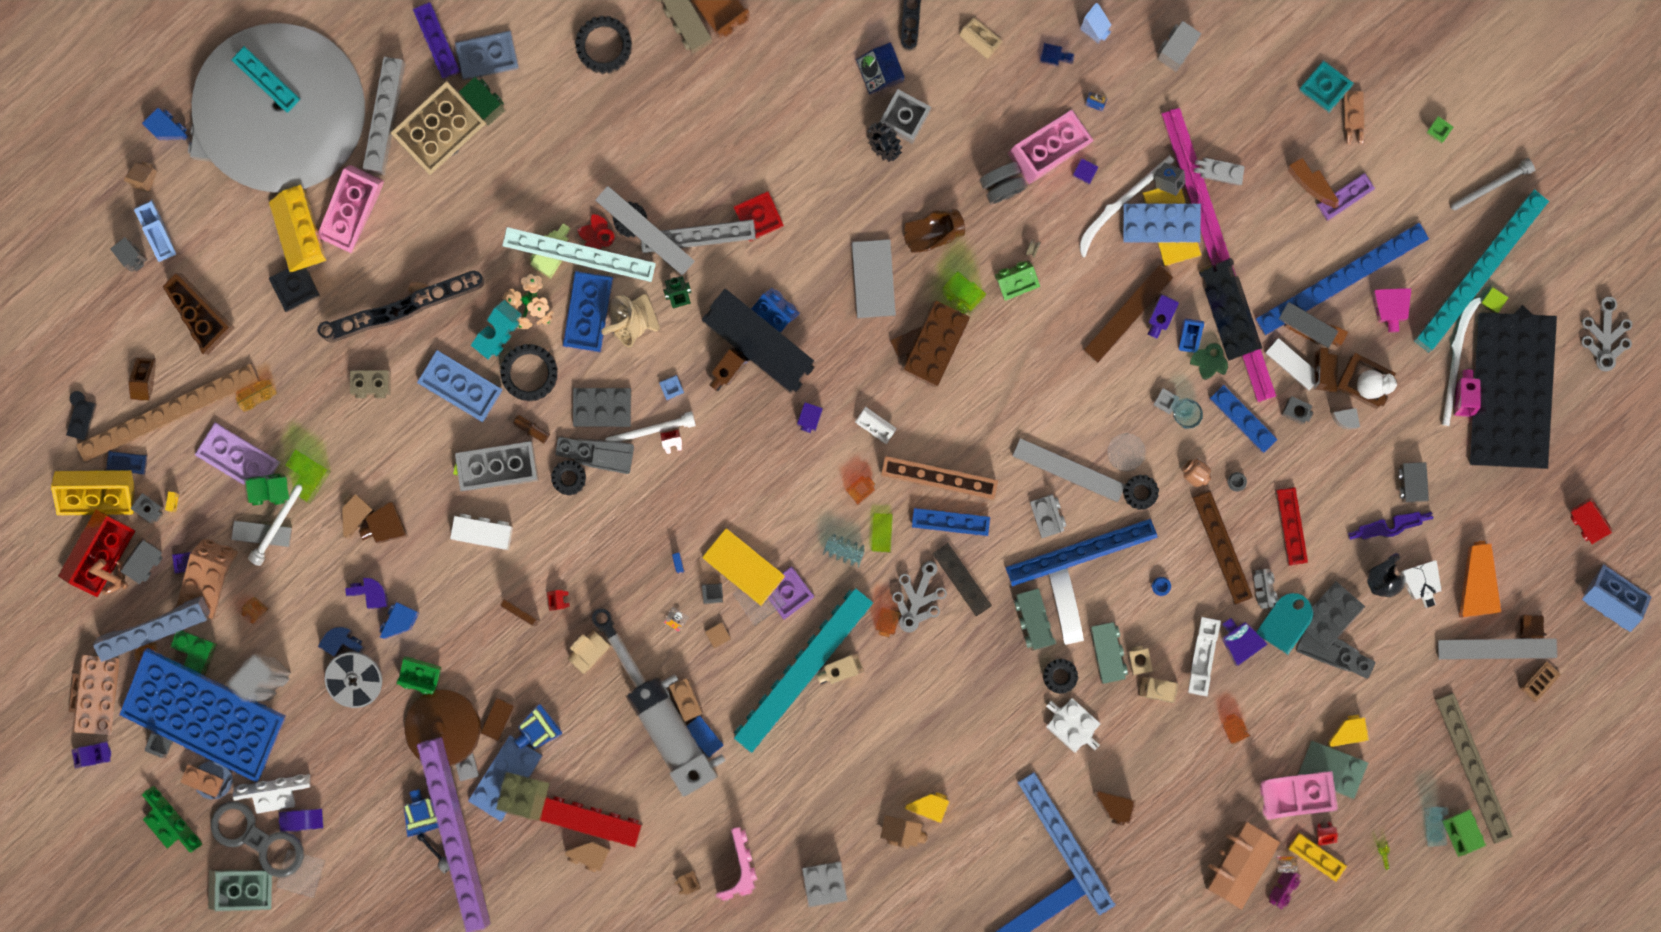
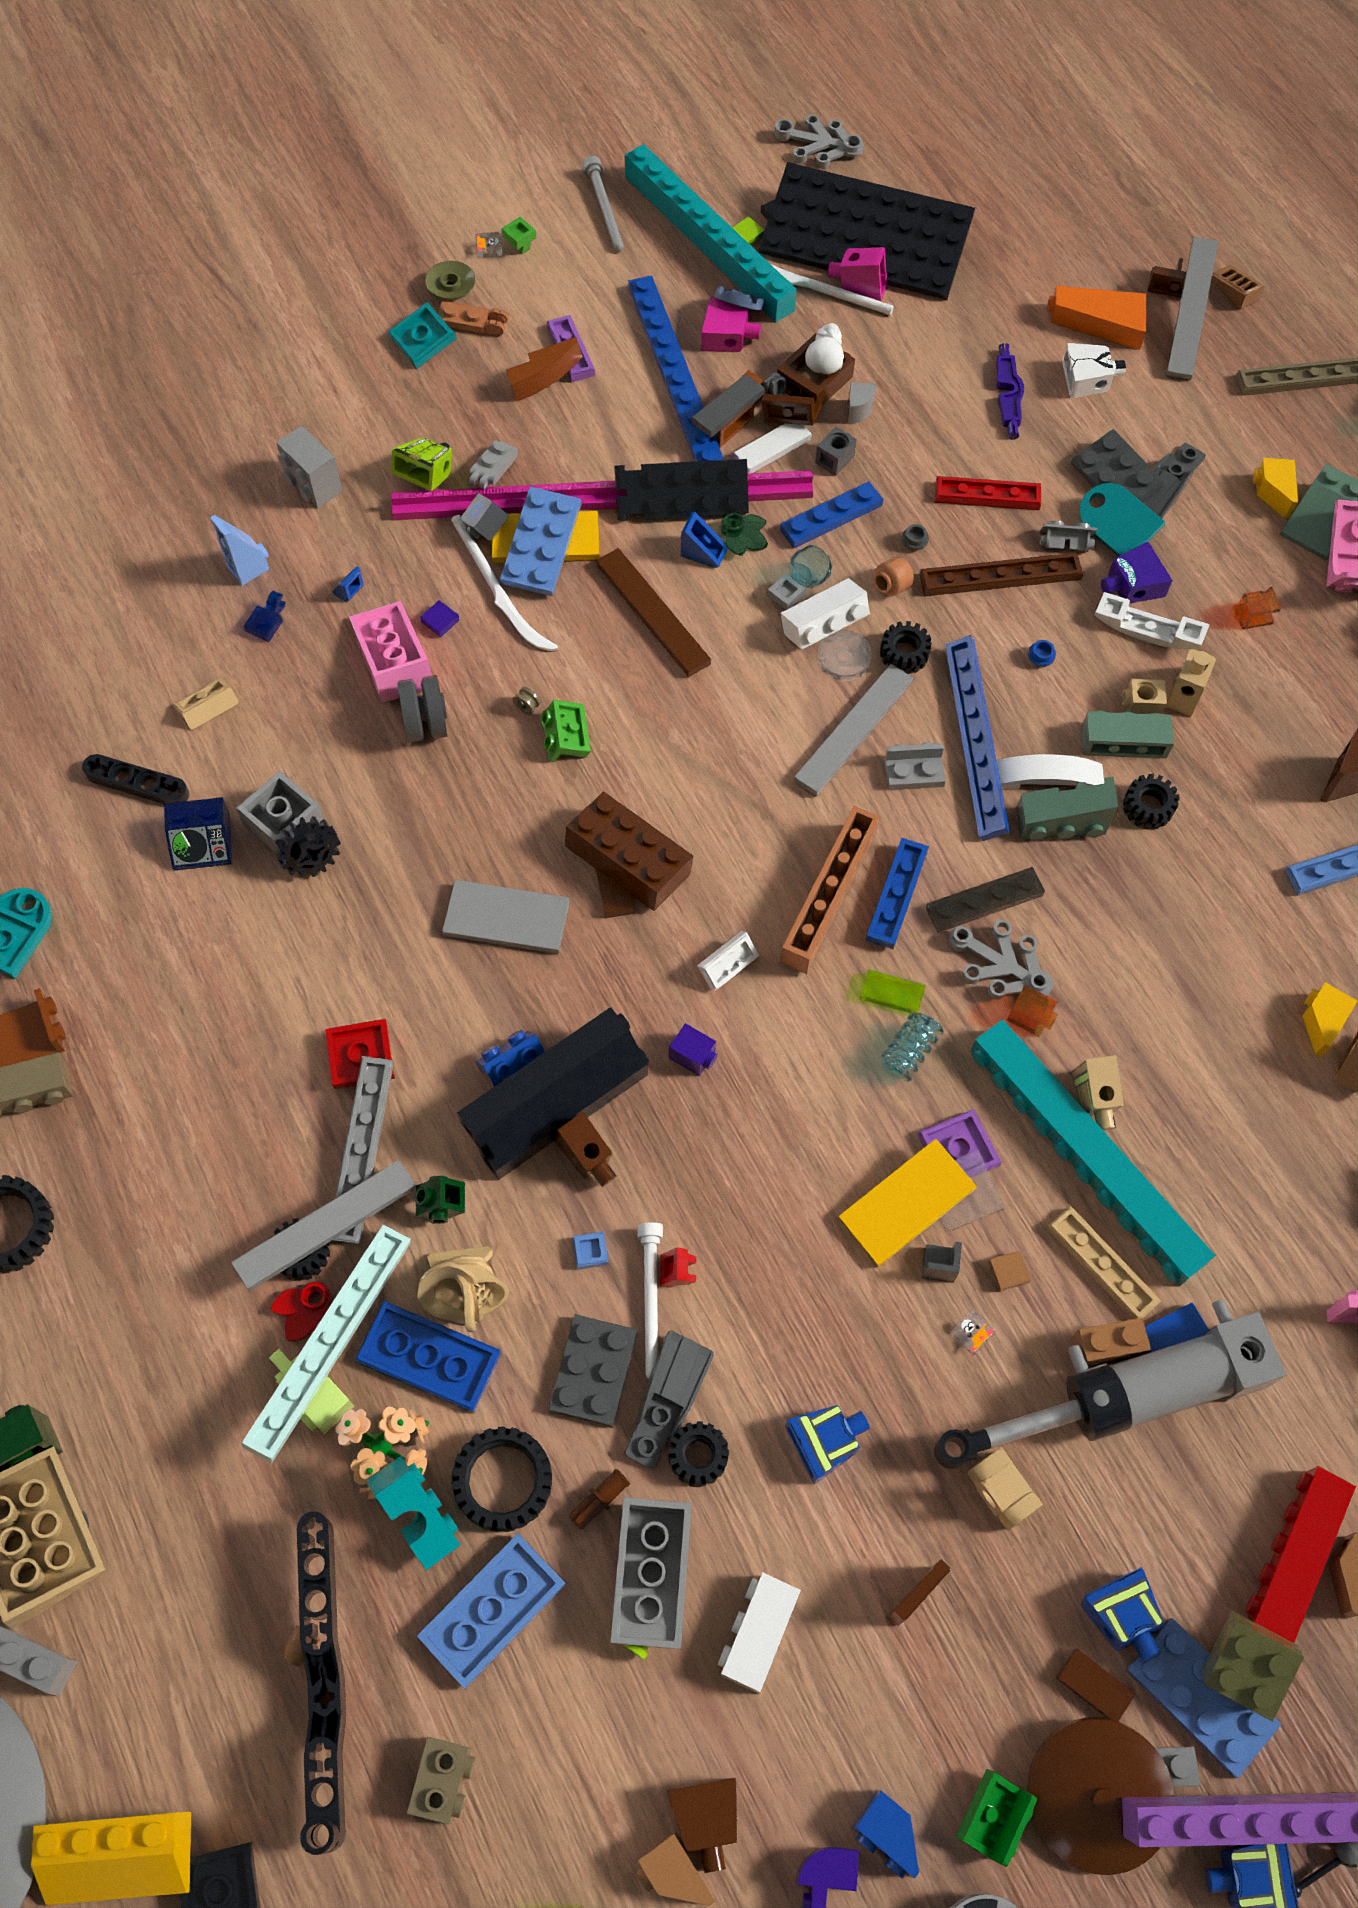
camera: 80 degrees left, 20 degrees down
(350, 207) = (112, 1741): bright pink slope -> none
(555, 600) = (904, 1525): red tile -> none
(593, 547) = (826, 1439): none -> blue torso
(678, 563) = (880, 1303): blue tile -> none
(735, 690) = (1103, 1264): none -> tan tile
(856, 496) = (817, 1012): clear orange window -> none
(934, 230) = (460, 814): reddish brown hair -> none
(964, 293) = (566, 796): clear neon green brick -> none
(1073, 725) = (1224, 803): white plate -> none
(1151, 431) = (825, 613): none -> white brick
(1166, 307) = (665, 564): dark purple torso -> none
(1207, 123) = (422, 462): none -> lime torso
(1343, 354) = (775, 384): none -> dark grey plate
(1383, 579) = (1081, 401): black helmet -> none
(1391, 90) = (450, 280): none -> olive dish
(1413, 482) = (959, 351): dark grey brick -> none
(1417, 309) = (739, 298): none -> sand blue tile
(1429, 109) = (488, 245): none -> clear tile
(1591, 521) = (1046, 191): red brick -> none
(1617, 598) = (1146, 191): medium blue slope -> none

